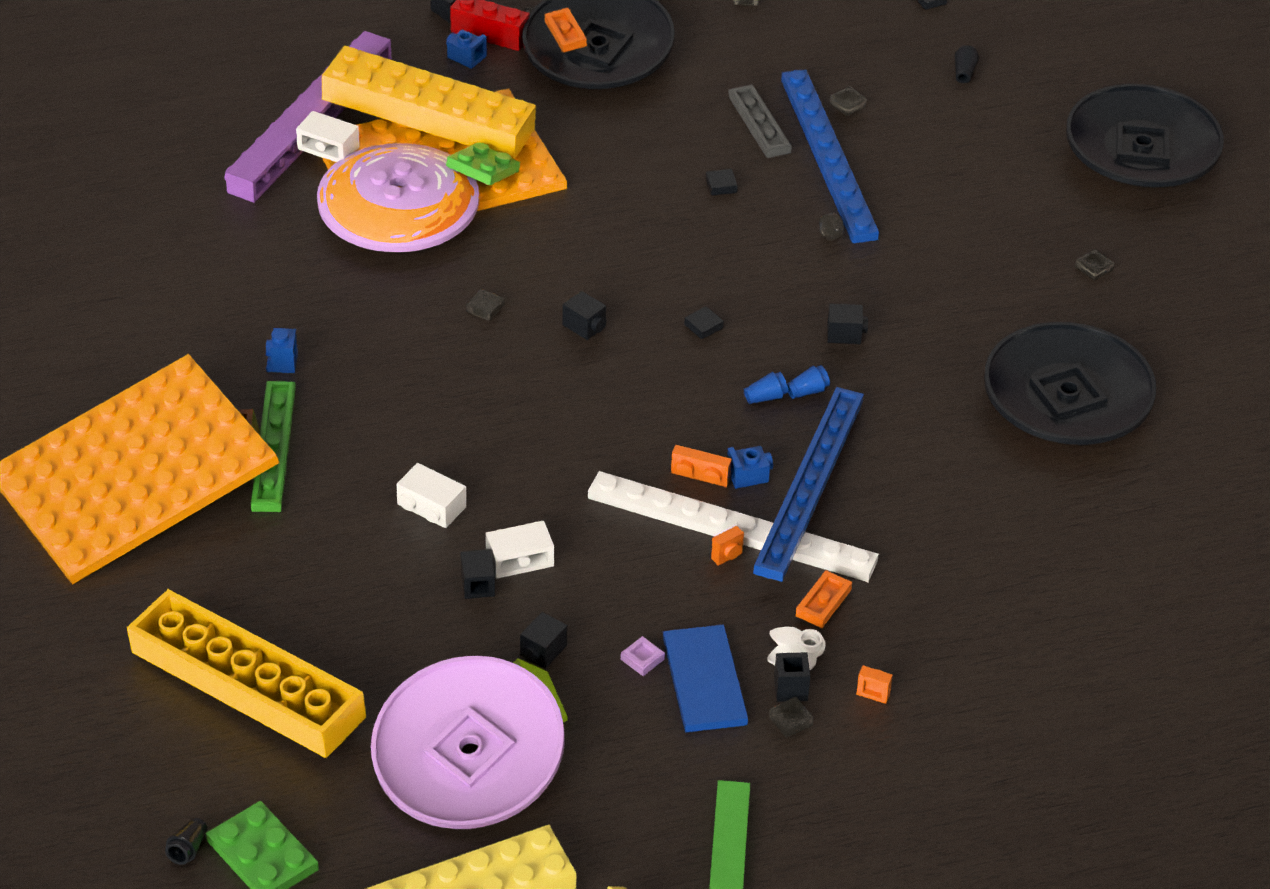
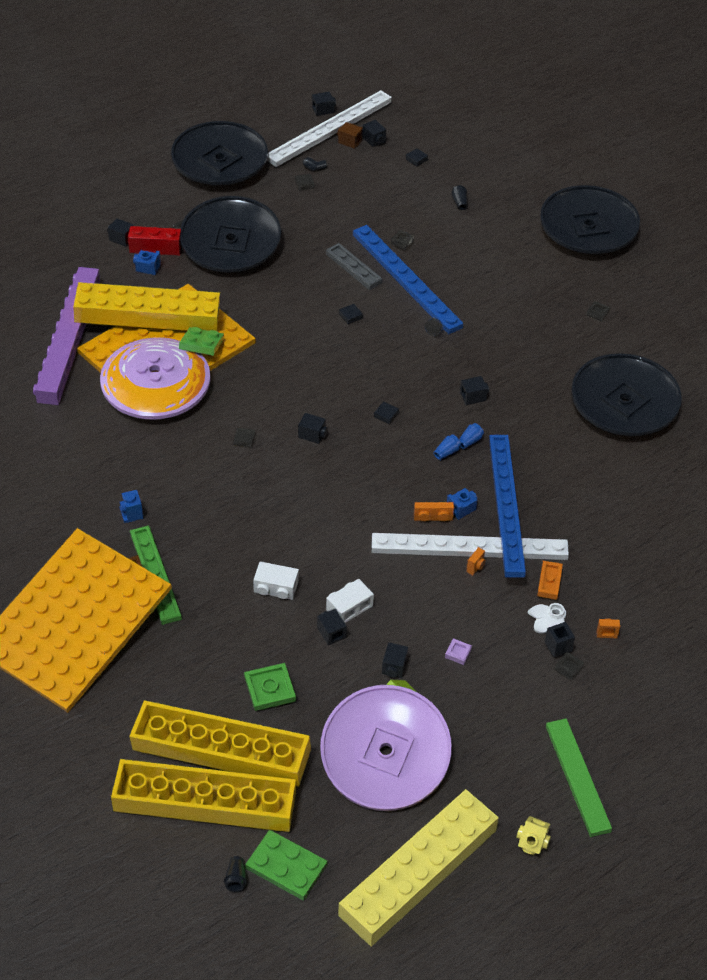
camera: 20 degrees left, 5 degrees up
(193, 731) = (204, 795): none -> yellow brick
(327, 136) = (91, 348): white brick -> none
(353, 625) = (269, 686): none -> bright green plate
(565, 30) = (210, 235): orange plate -> none
(705, 678) = (503, 655): blue tile -> none

